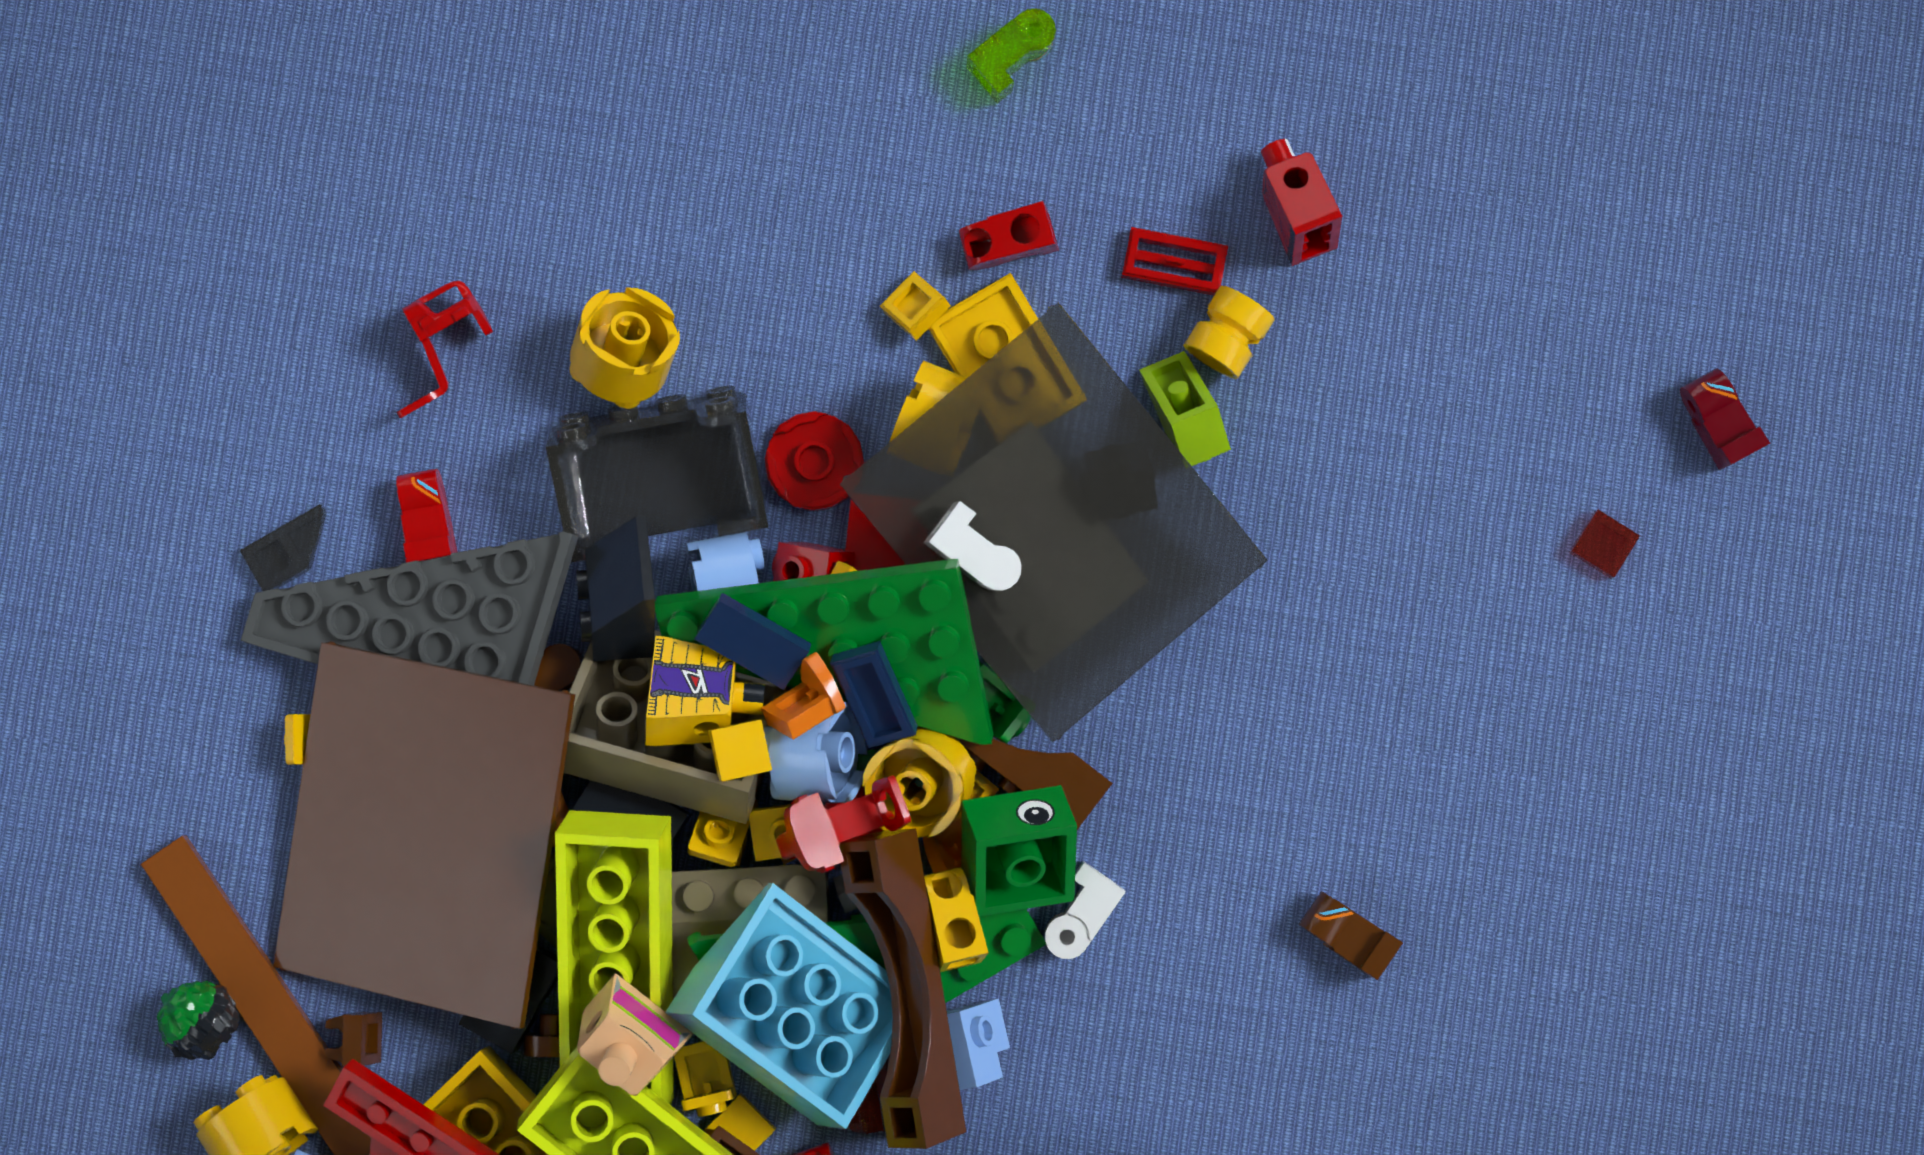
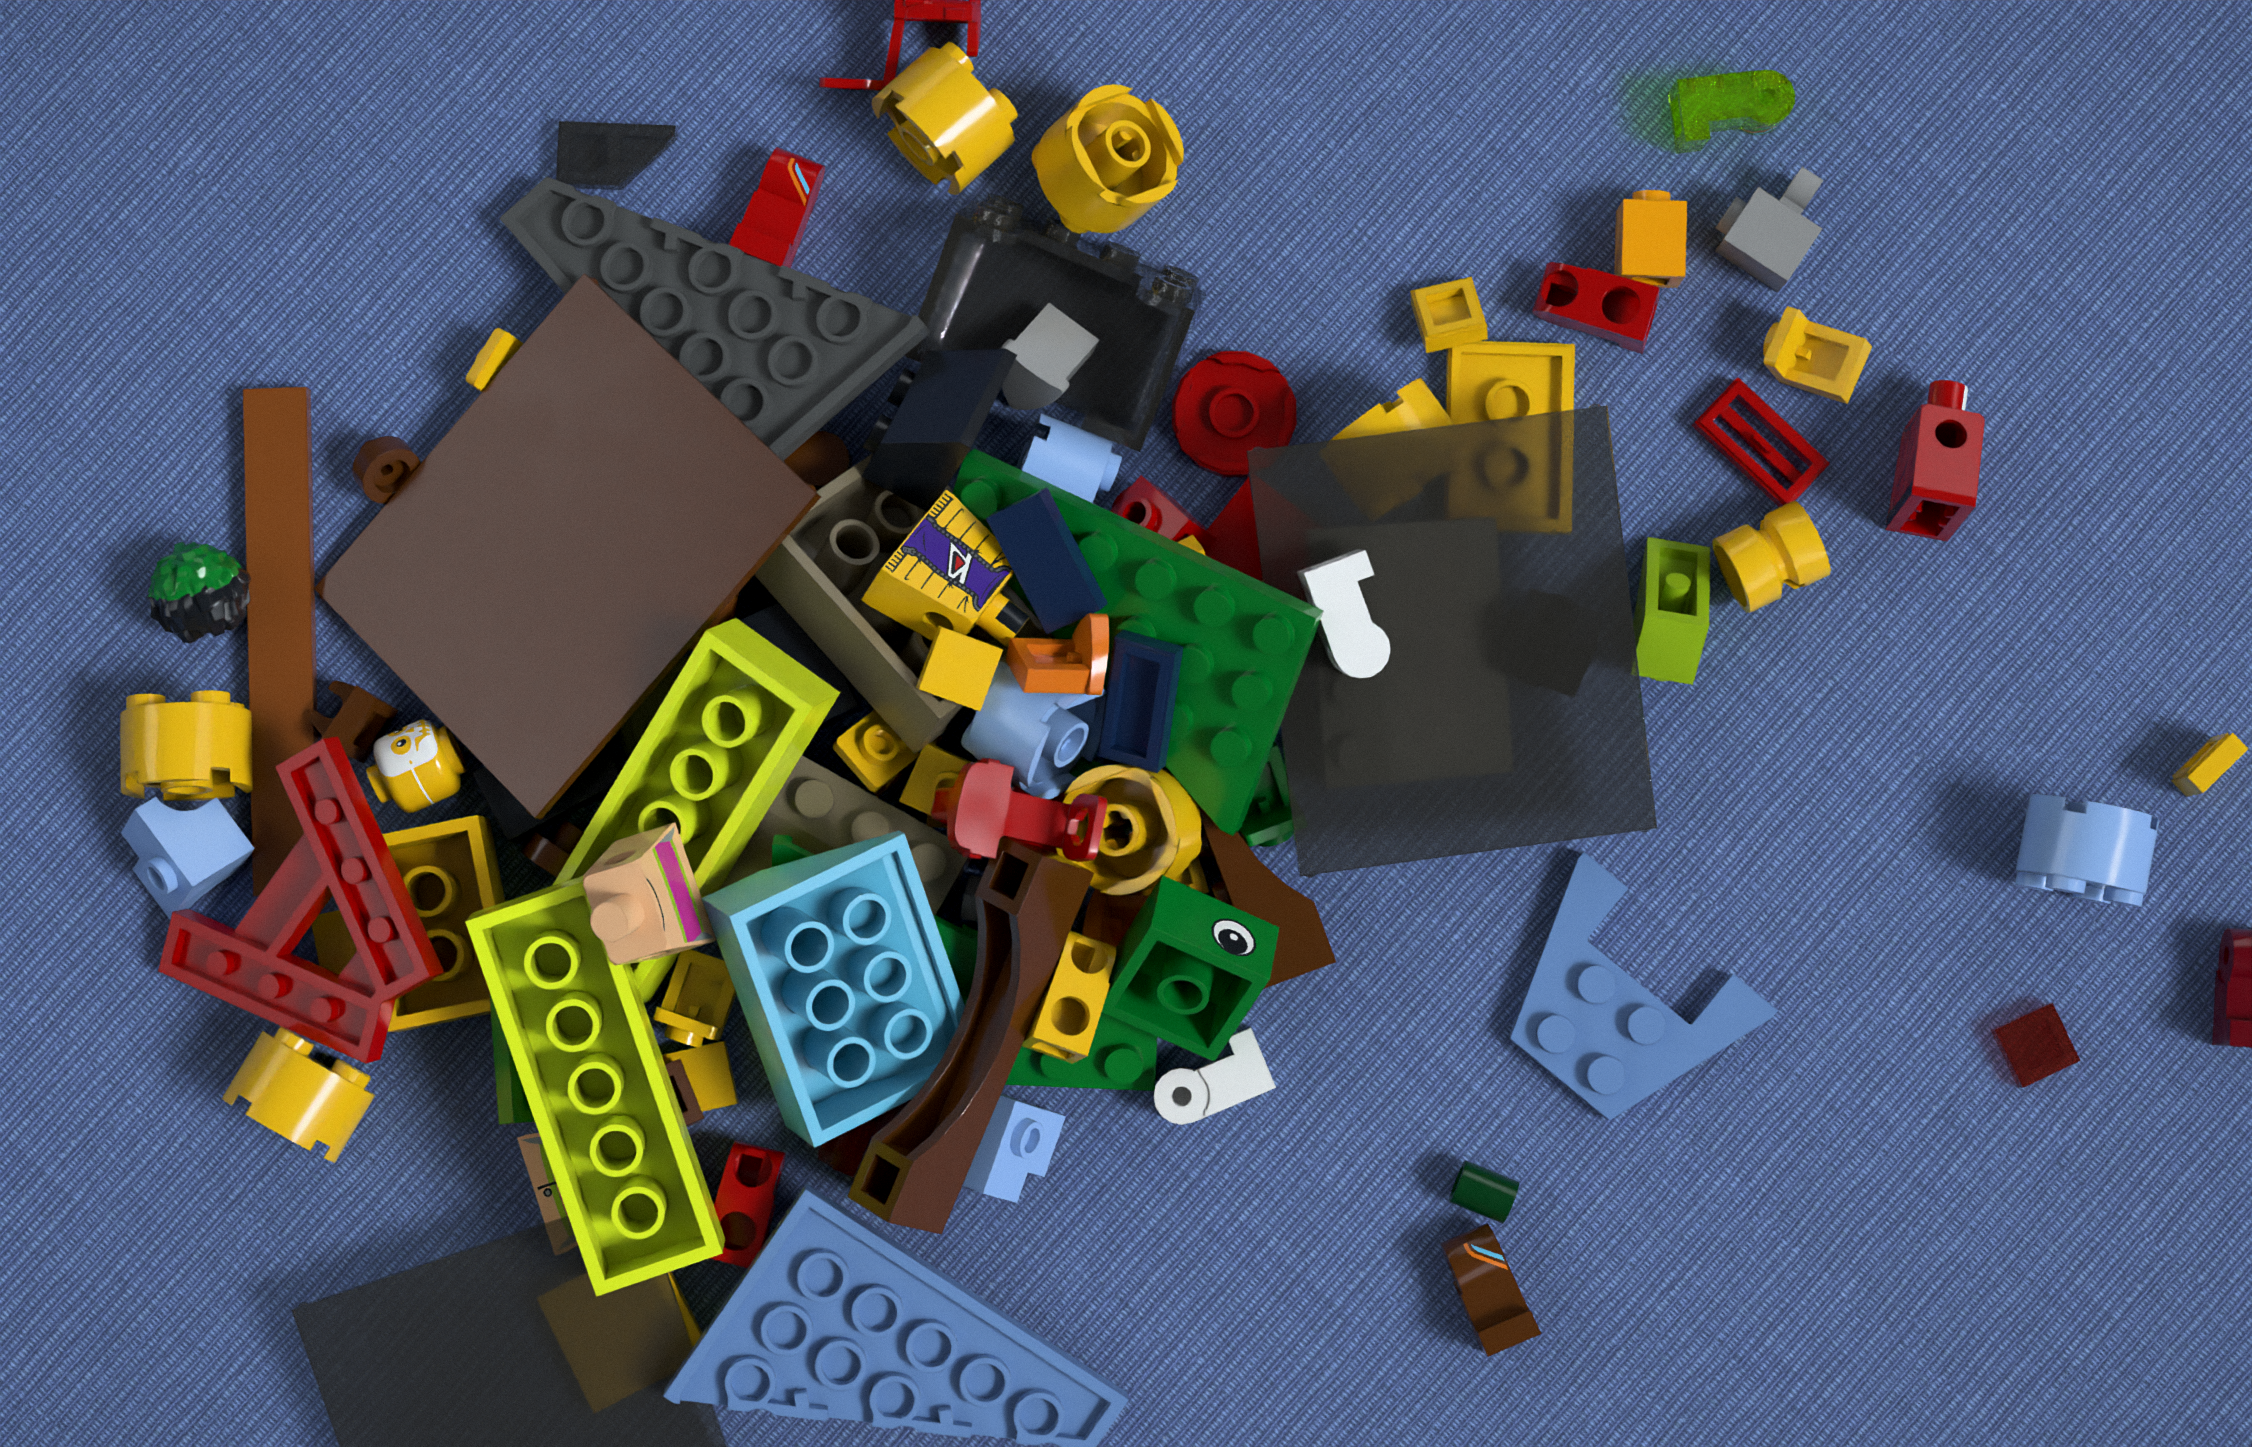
camera: 30 degrees right, 0 degrees up
(269, 856) = (383, 467): none -> reddish brown tile
(418, 1042) = (417, 766): none -> yellow head
(498, 385) = (946, 117): none -> yellow brick
(666, 503) = (1046, 359): none -> light grey tile
(1017, 171) = (1651, 239): none -> light orange brick
(1094, 119) = (1770, 234): none -> light grey brick
(1173, 181) = (1814, 356): none -> yellow bracket
(1305, 871) = (1484, 1191): none -> dark green hinge
(1312, 712) = (1602, 1026): none -> medium blue wing
(1557, 395) = (2086, 850): none -> light blue brick
(1600, 287) = (2208, 764): none -> yellow tile

